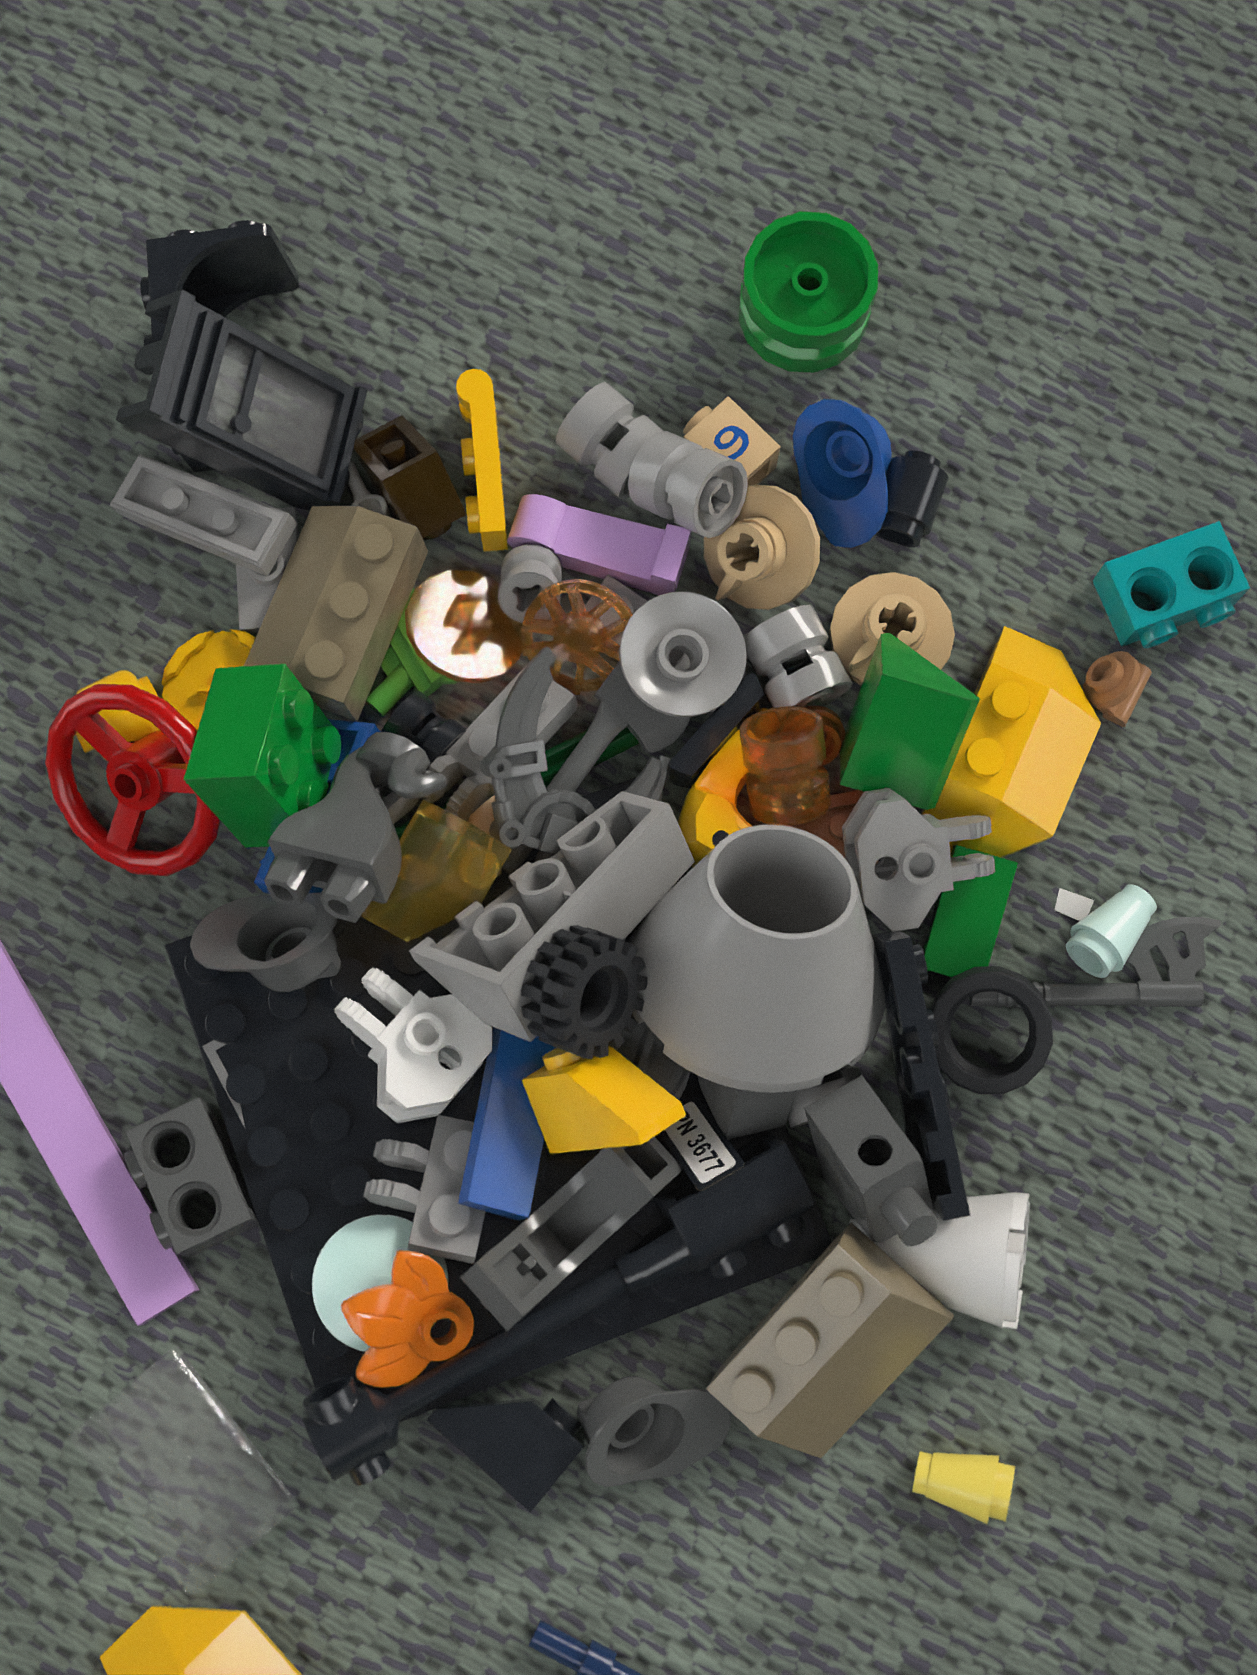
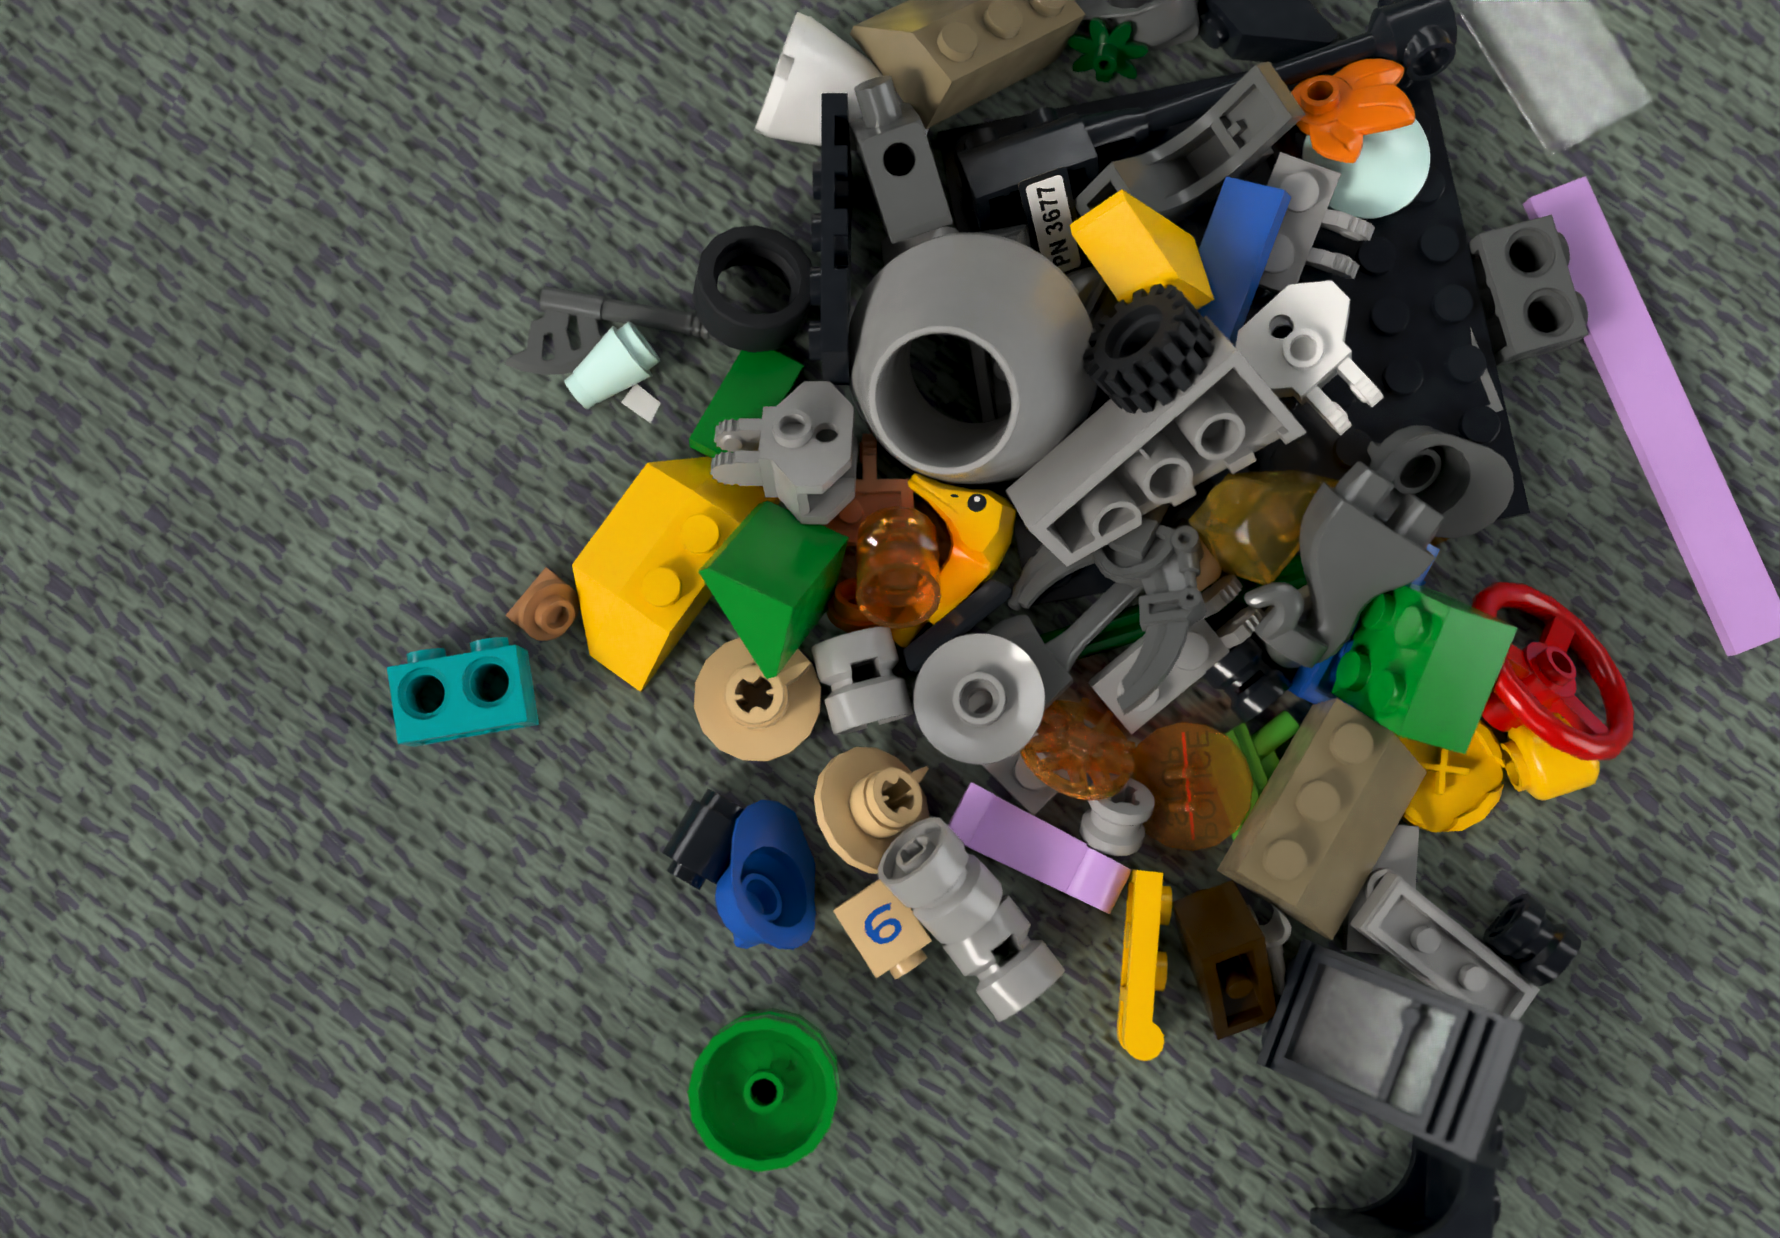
camera: 165 degrees left, 5 degrees up
(122, 544) = (1532, 940): none -> black wheel
(672, 1363) = (1107, 52): none -> dark green plant

